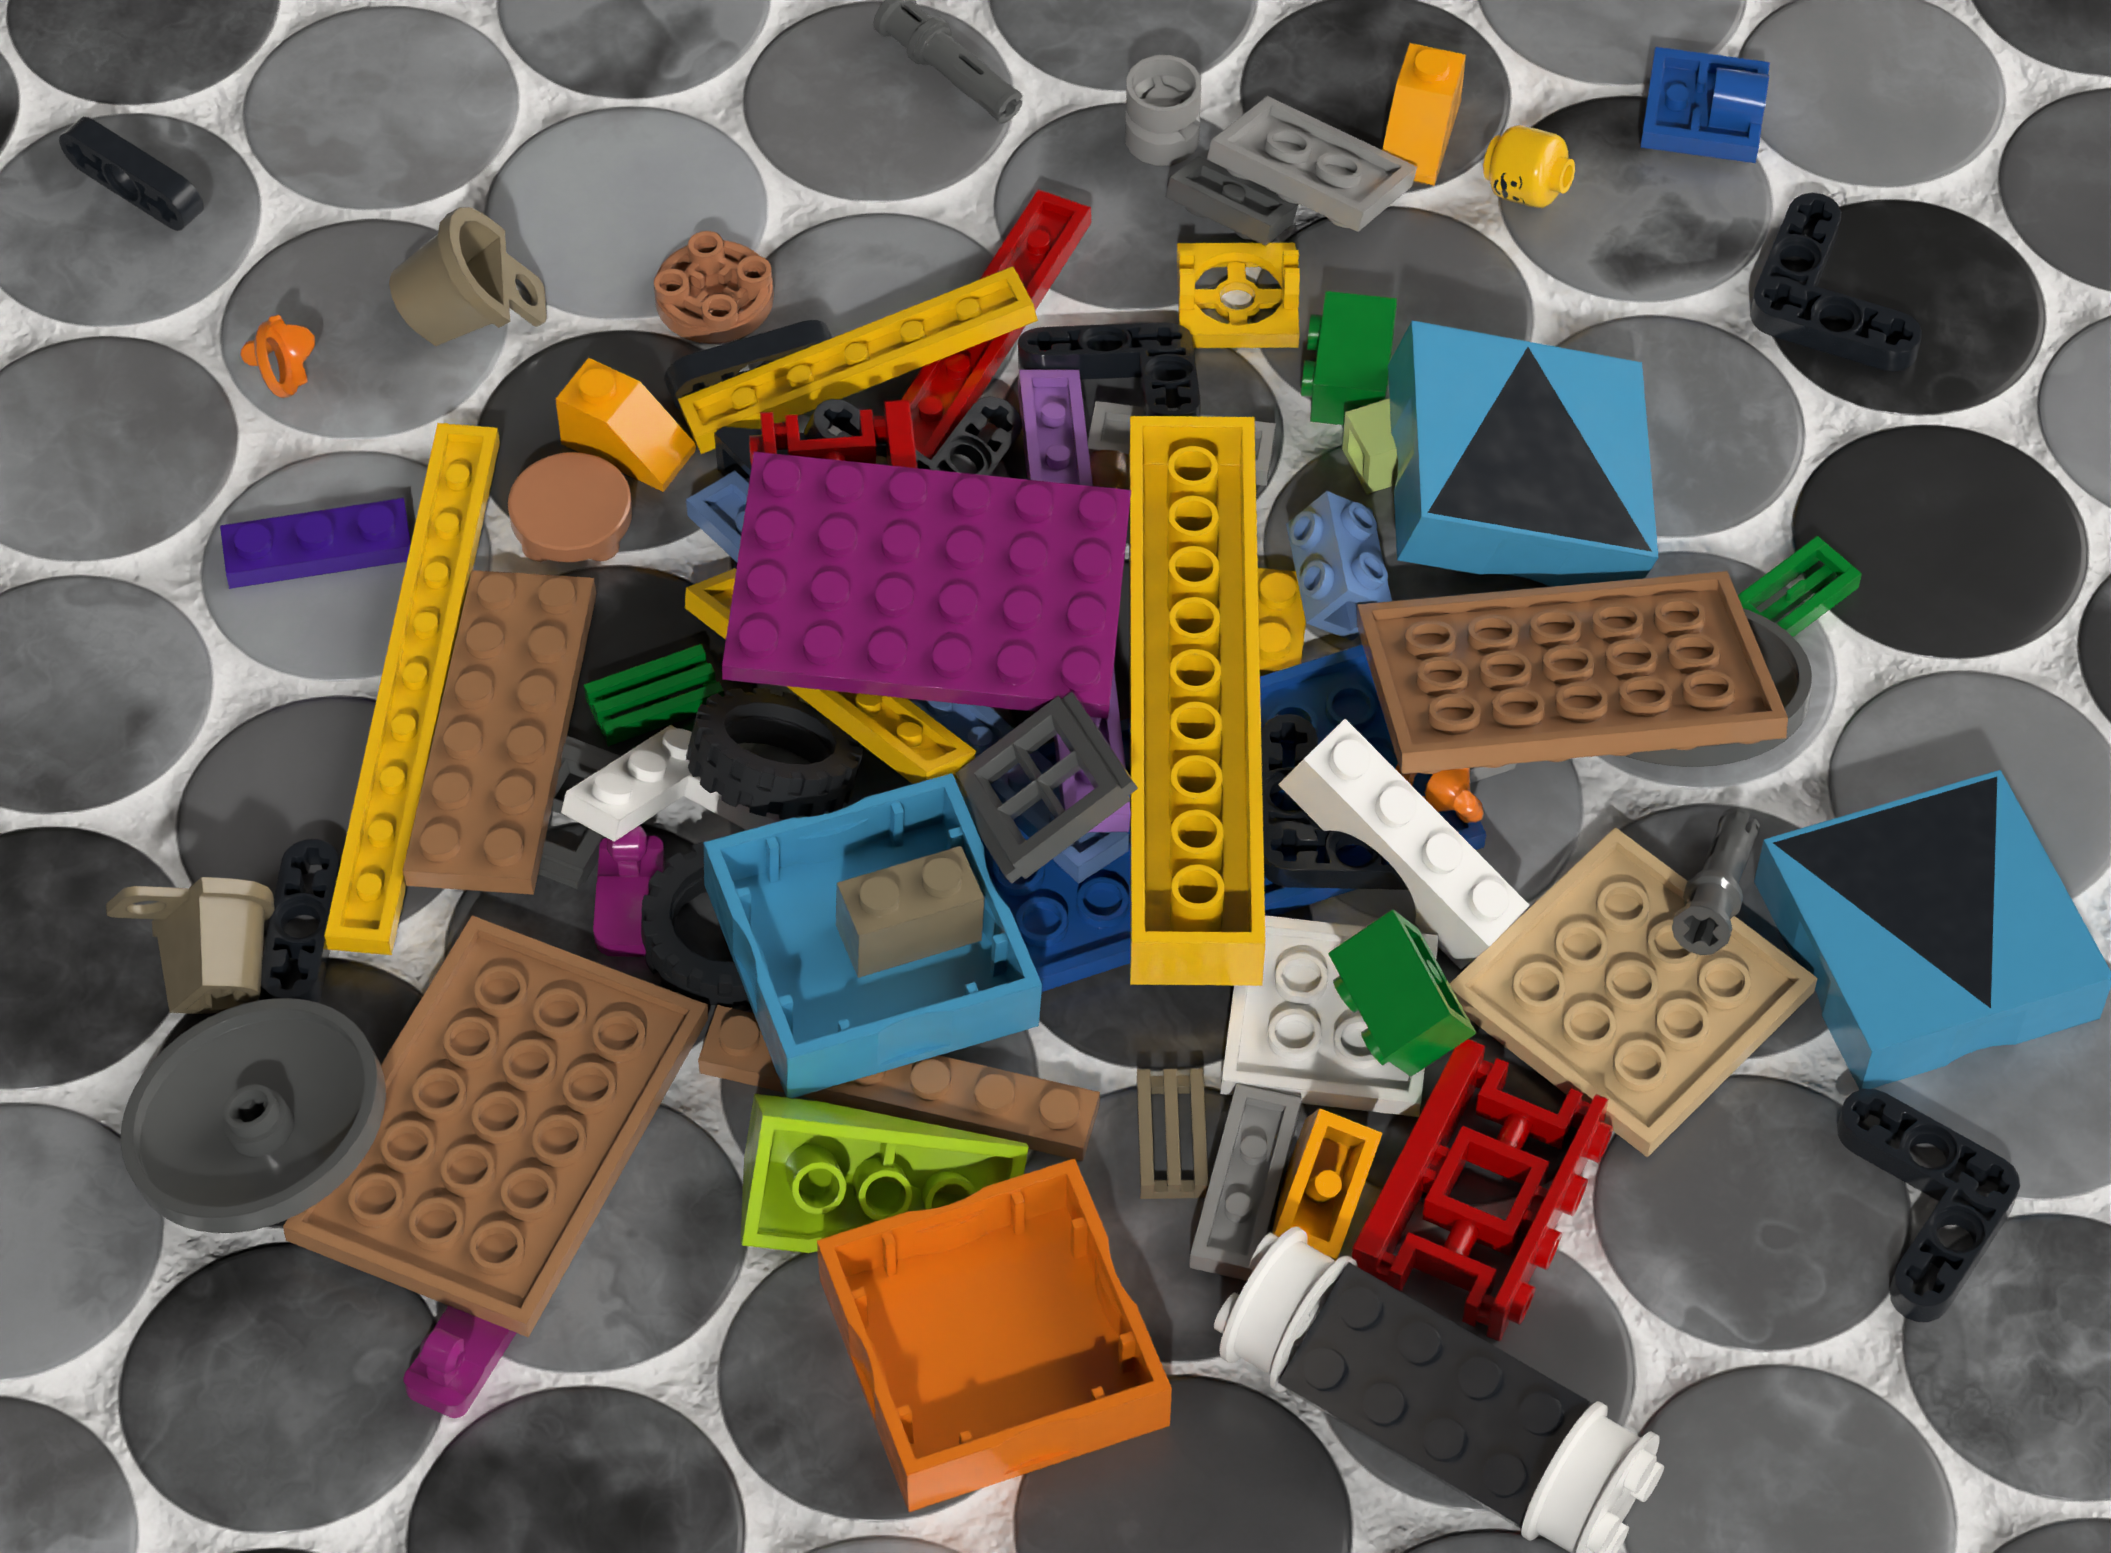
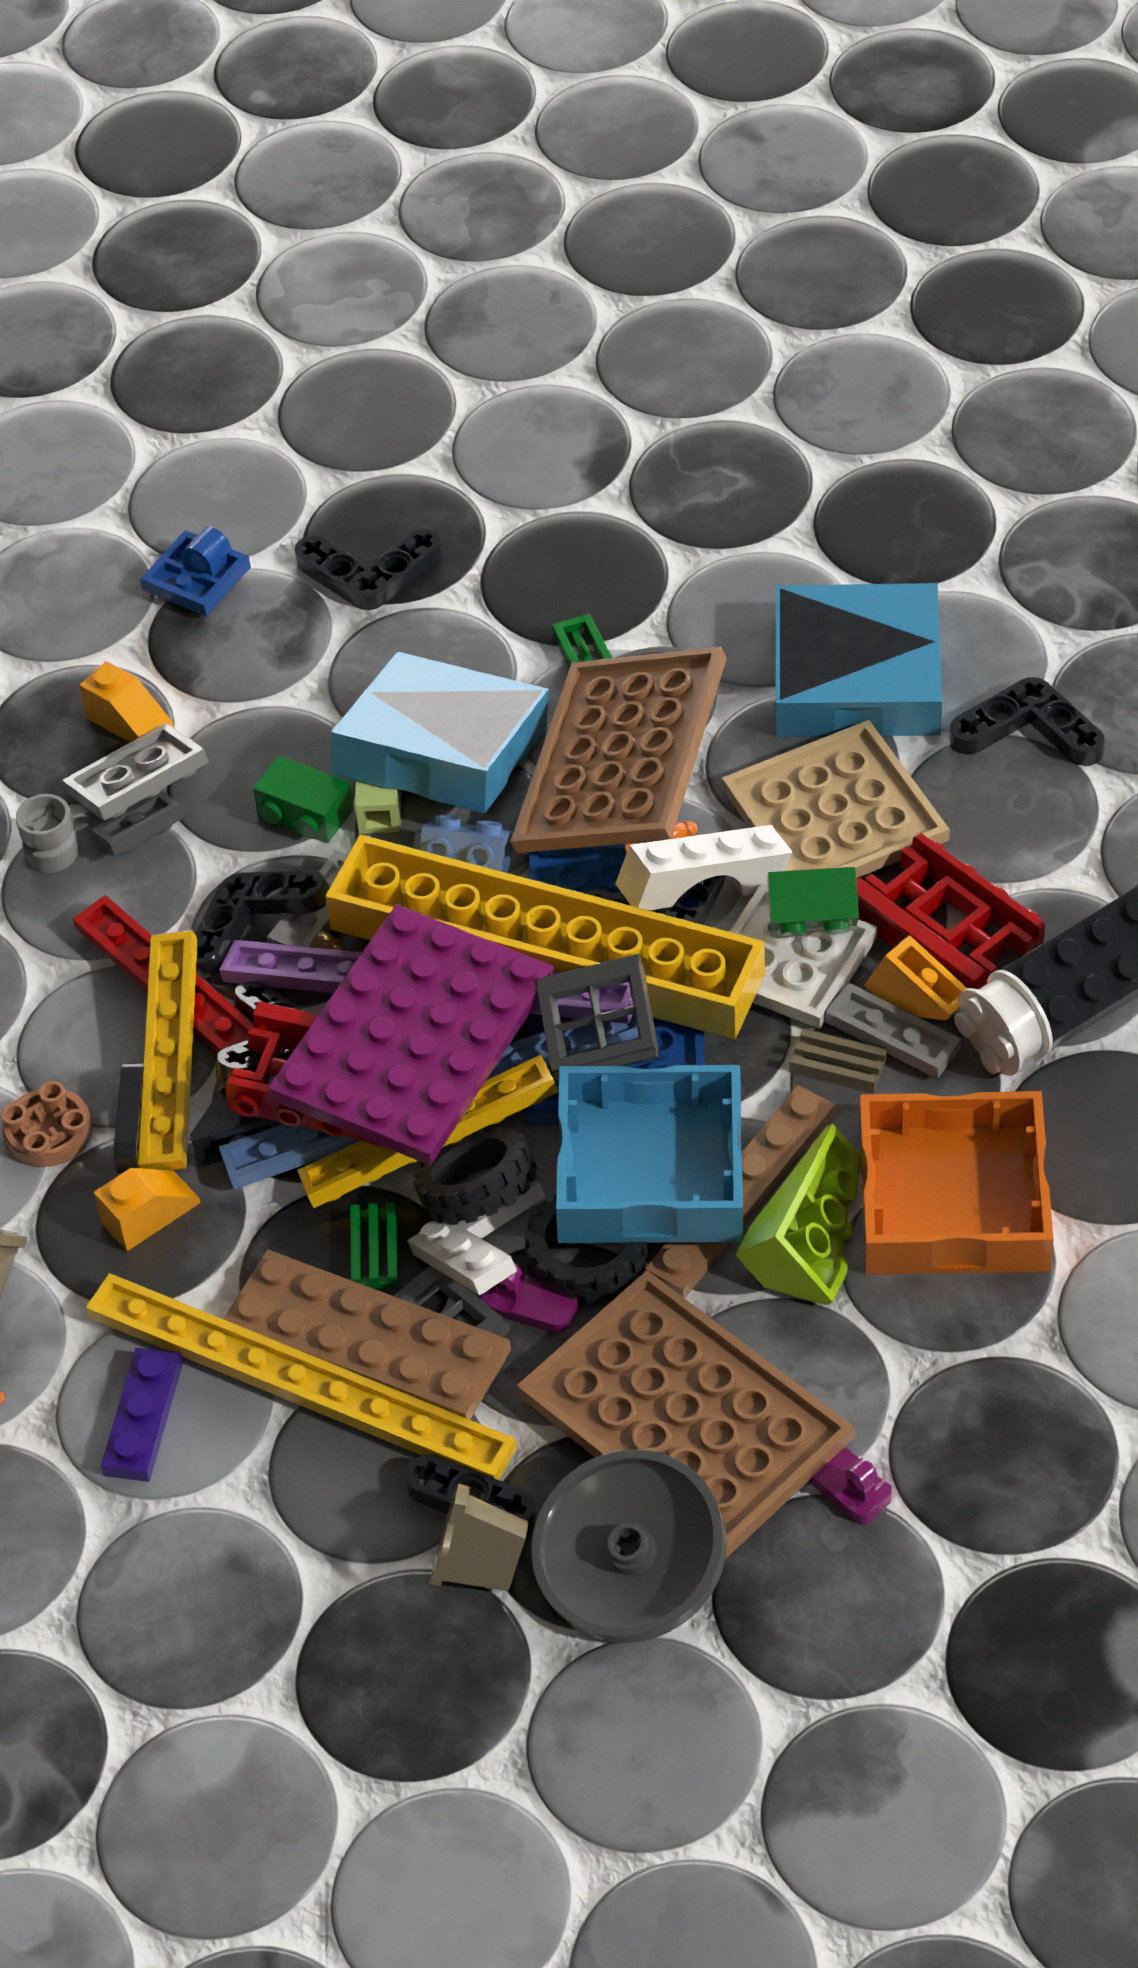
camera: 65 degrees left, 5 degrees down
(570, 508) = (196, 1252): nougat tile -> none
(909, 911) = (646, 1124): dark tan brick -> none
(1275, 331) = (227, 816): yellow piece -> none
(1528, 166) = (198, 668): yellow head -> none
(1715, 893) = (799, 740): dark grey pin -> none

